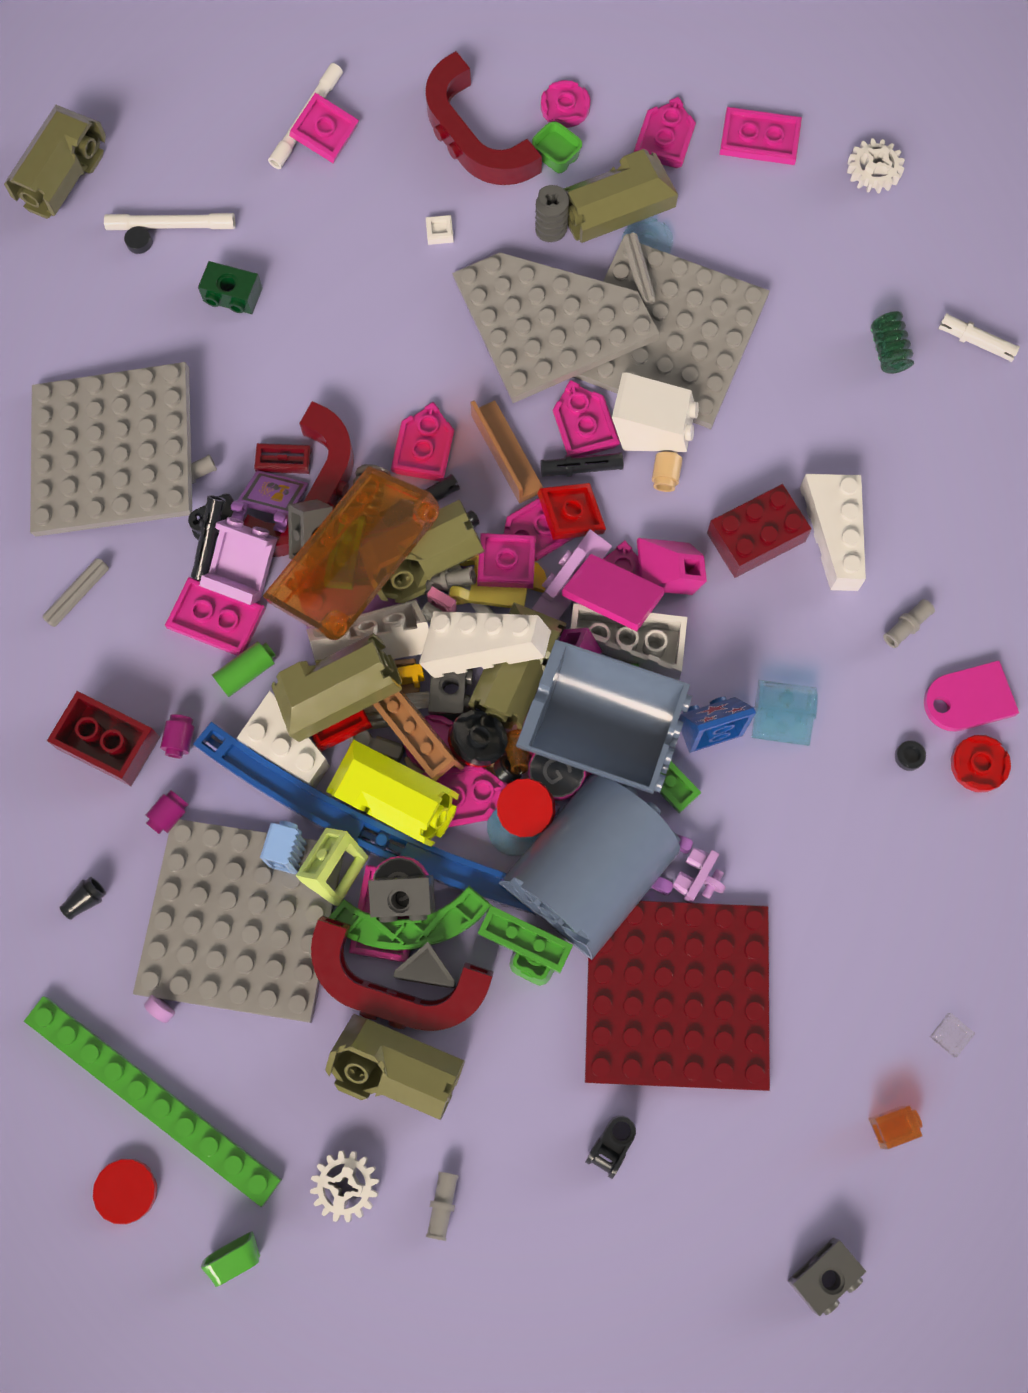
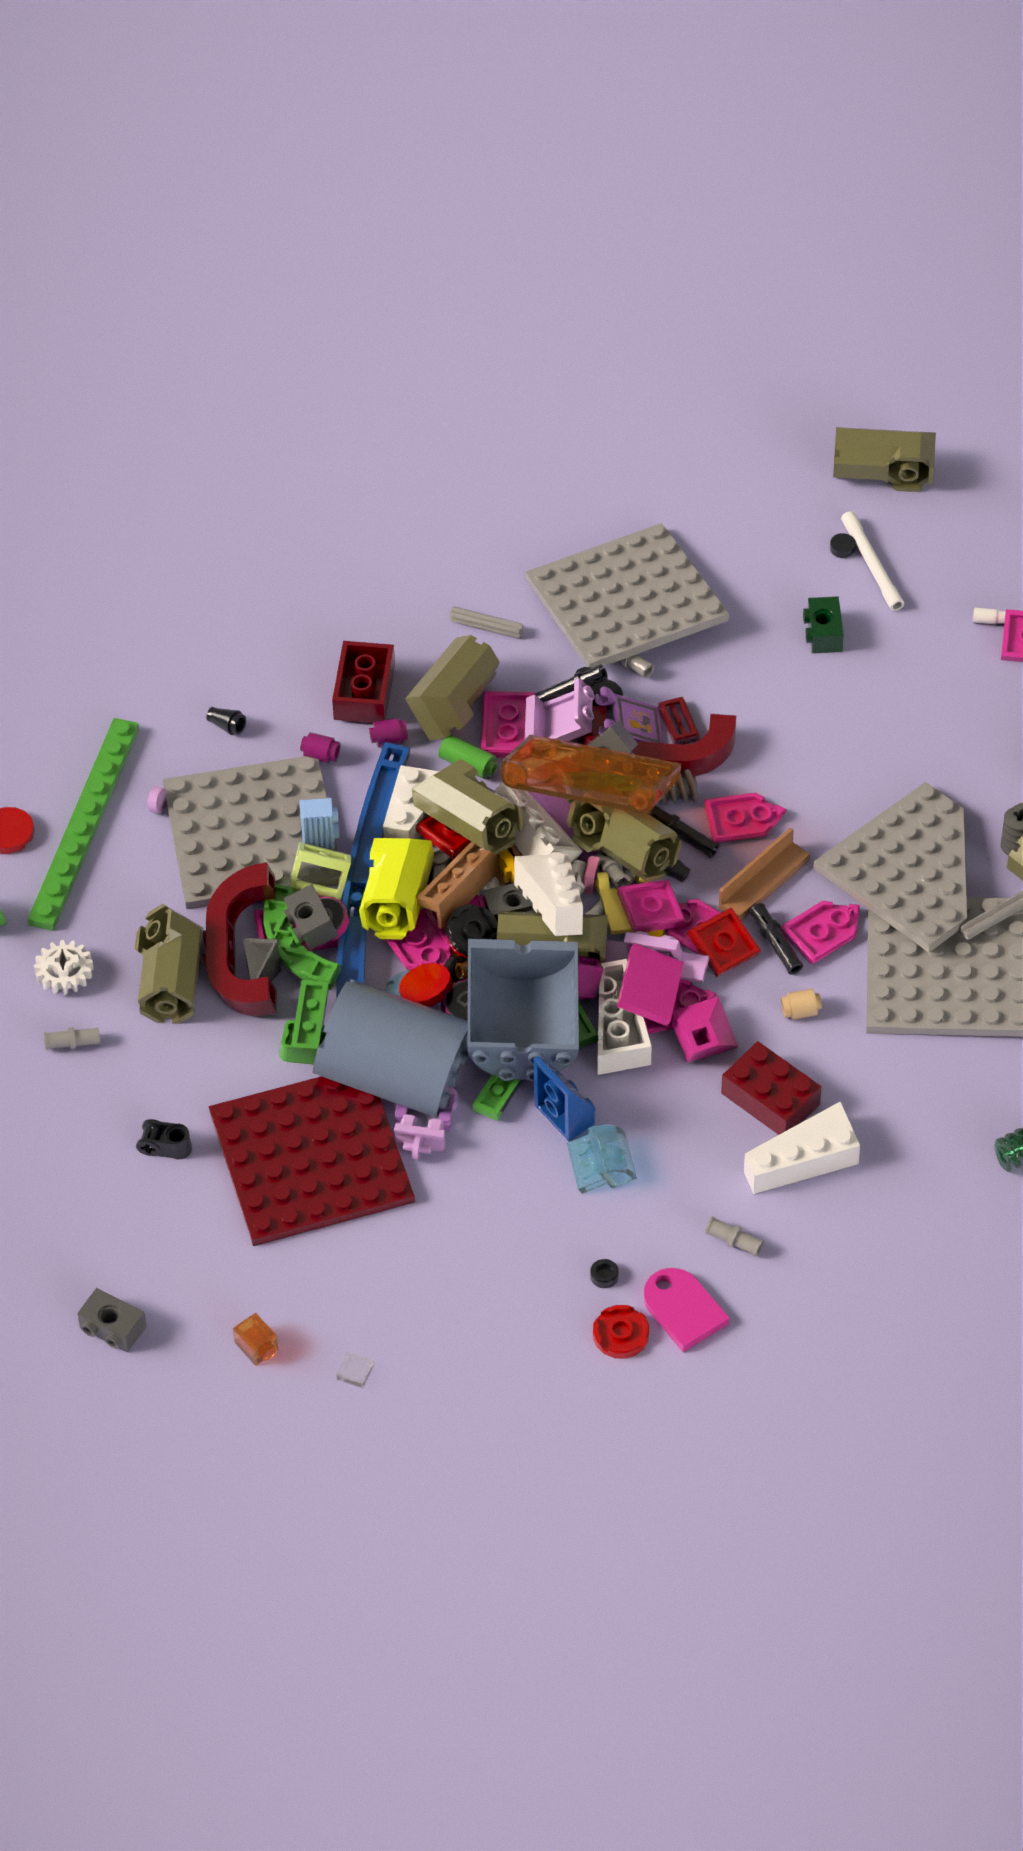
camera: 70 degrees right, 20 degrees down
(159, 651) = (452, 686): none -> olive brick
(439, 229) = (969, 760): white tile -> none
(653, 415) = (842, 964): white slope -> none

